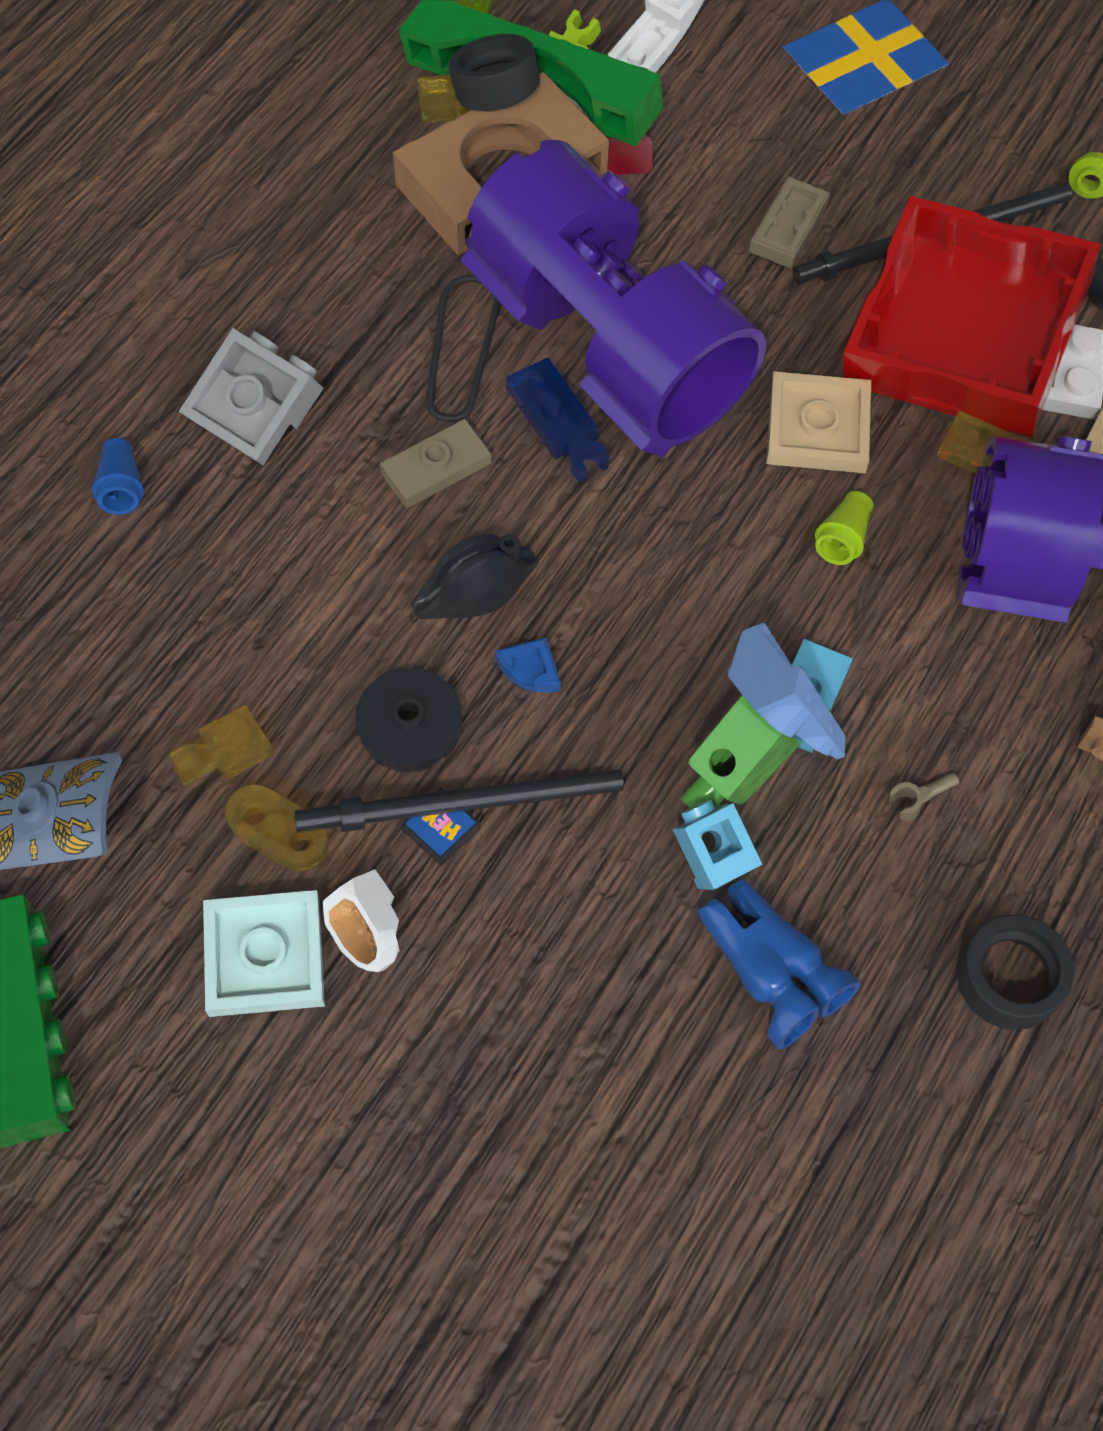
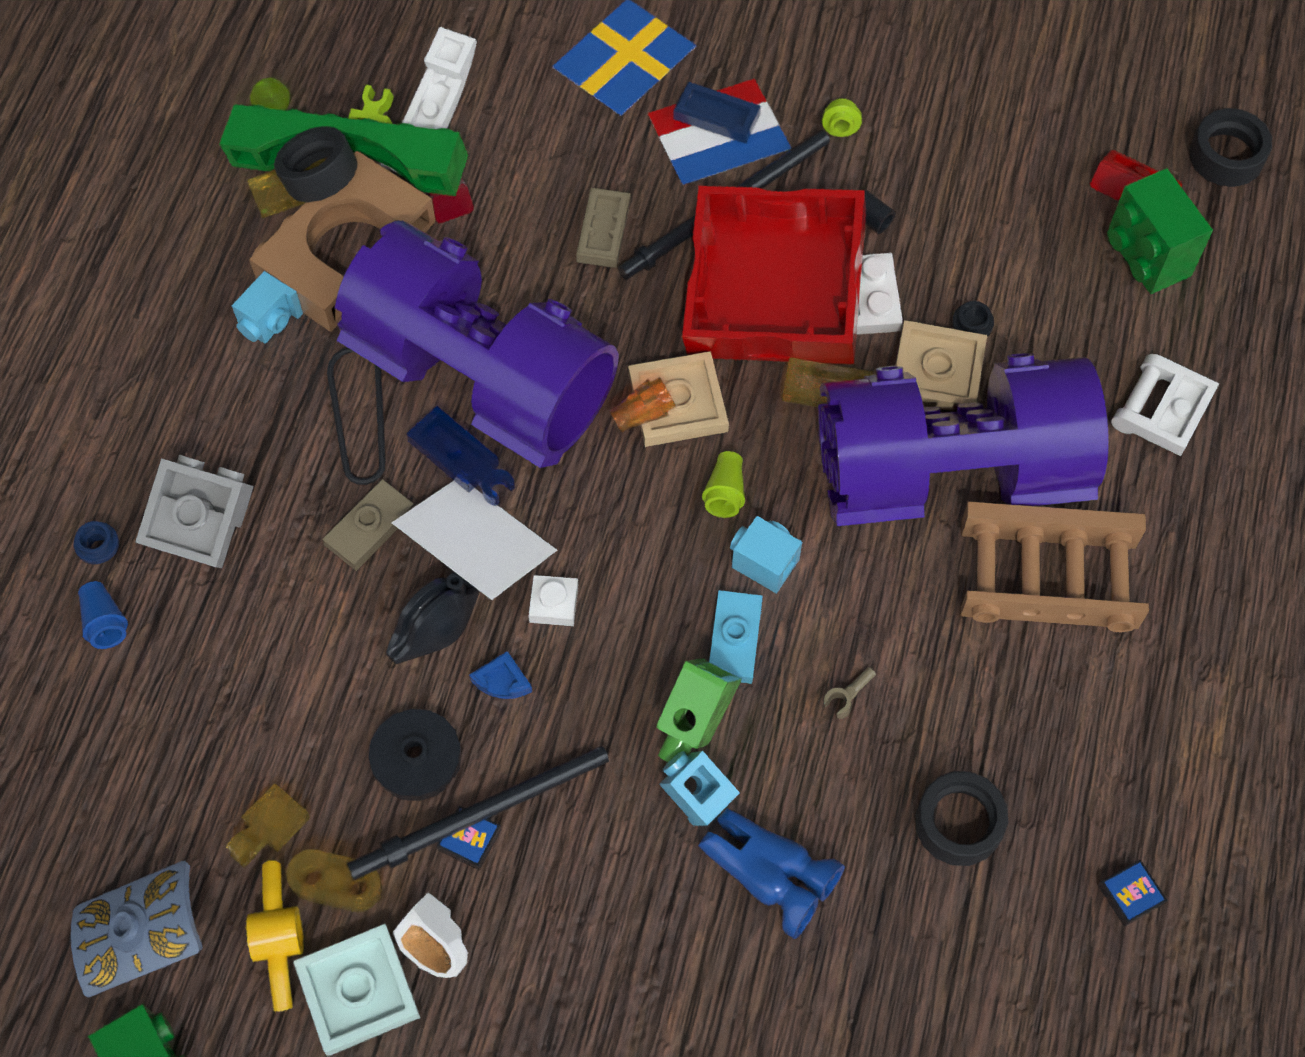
camera: 15 degrees left, 0 degrees up
(134, 391) = (93, 532): none -> dark blue plate
(193, 867) = (275, 935): none -> yellow piece
(395, 209) = (266, 308): none -> medium azure brick
(546, 507) = (474, 538): none -> white sticker
(613, 599) = (553, 600): none -> white plate
(778, 414) = (643, 405): none -> clear orange cone
(783, 693) = (715, 650): medium blue slope -> none
(870, 613) = (765, 553): none -> medium azure brick
(949, 157) = (704, 153): none -> sticker
(952, 136) = (717, 112): none -> dark blue tile

